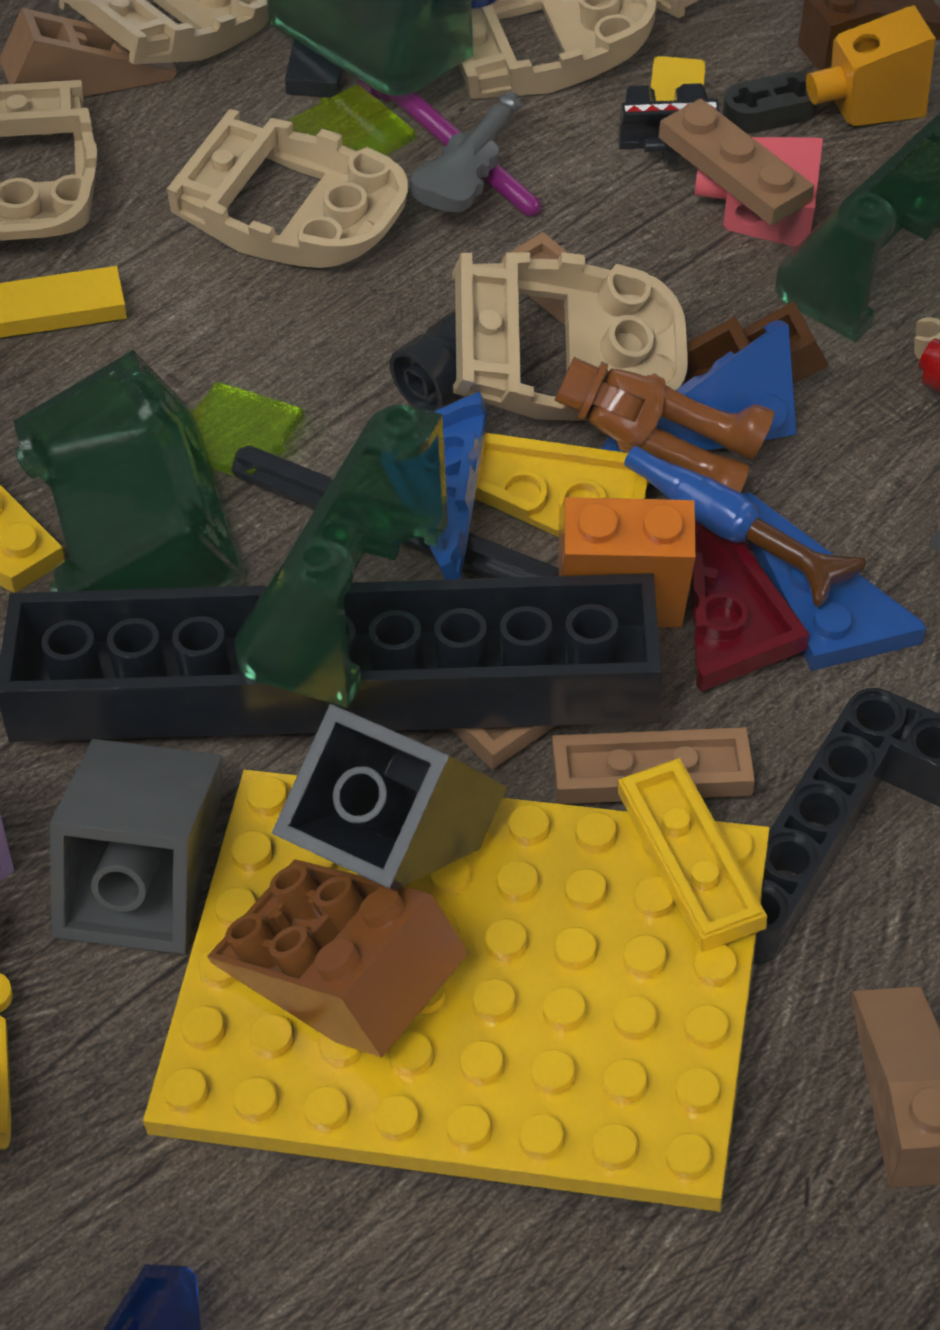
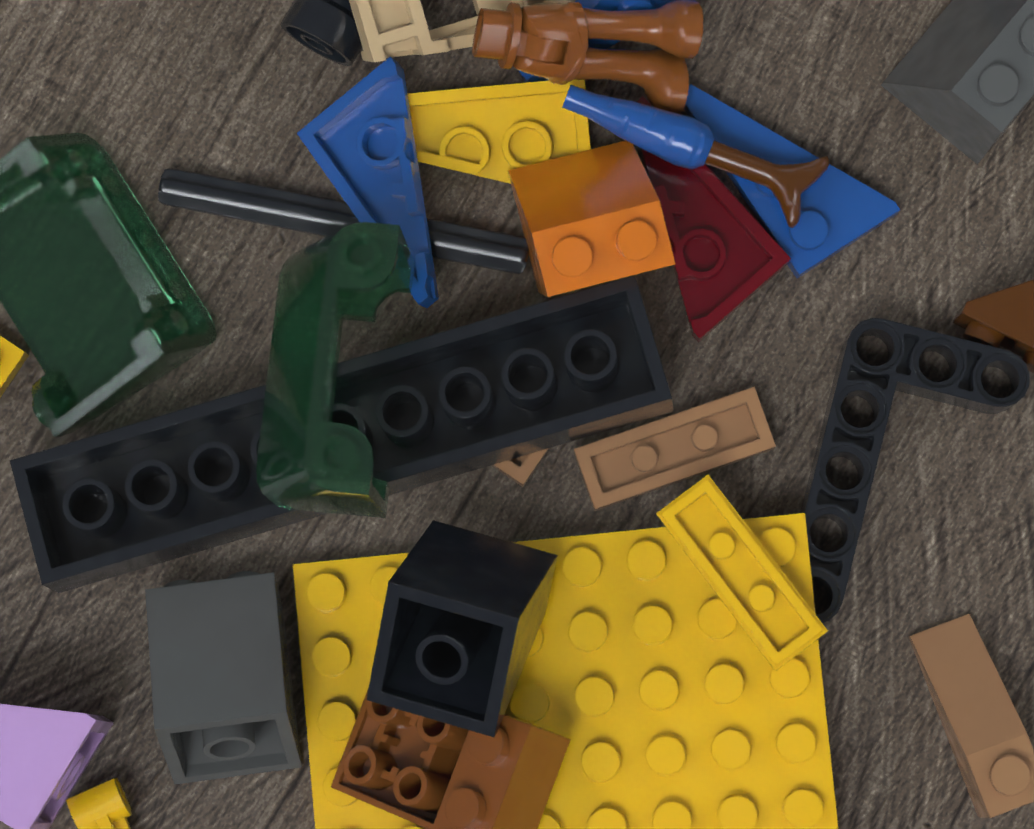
camera: 15 degrees left, 30 degrees up
(239, 418) = (147, 135): clear neon green piece -> none

